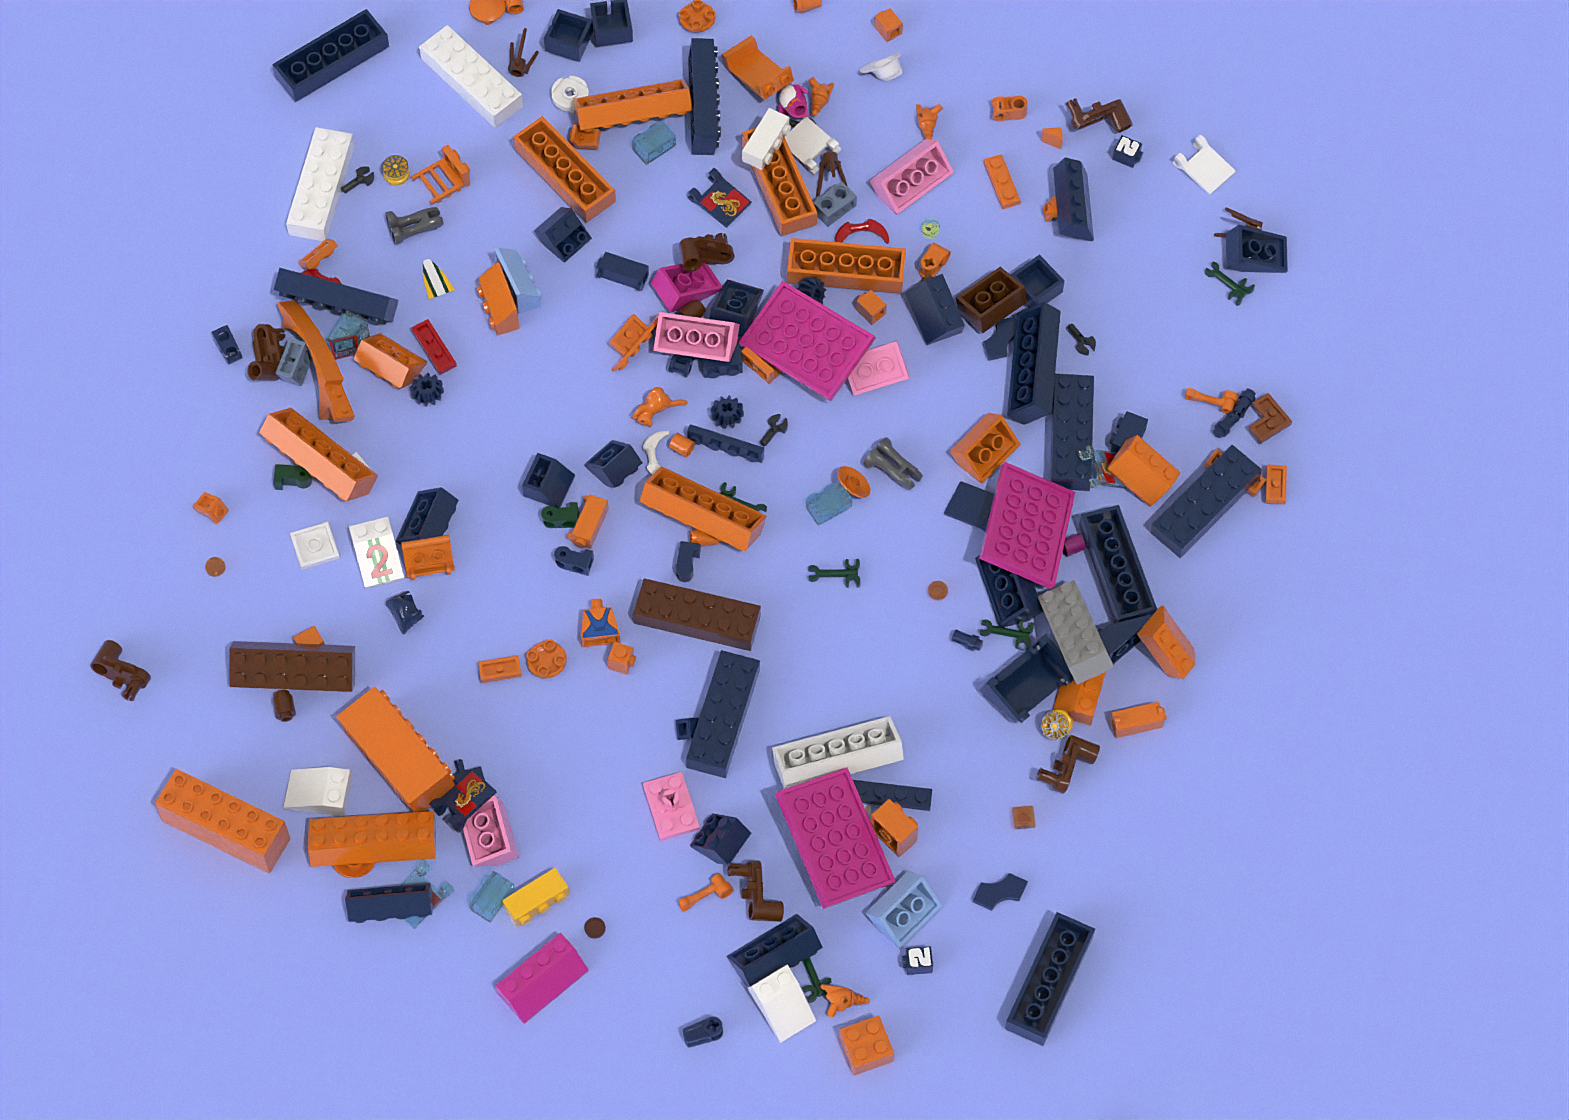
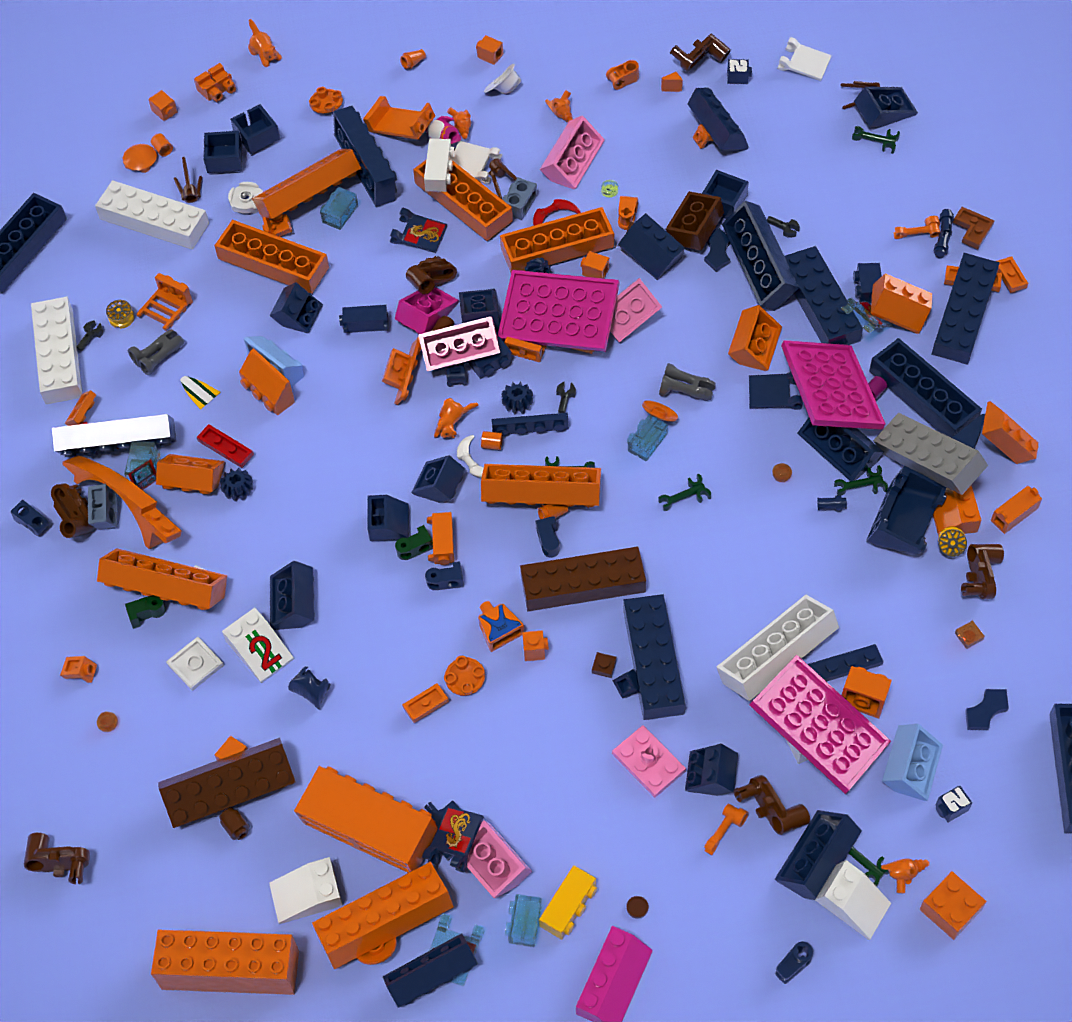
camera: 20 degrees left, 5 degrees down
(428, 556) = (308, 628): orange piece -> none
(676, 702) = (604, 665): none -> reddish brown plate
(1002, 181) = (648, 131): orange plate -> none

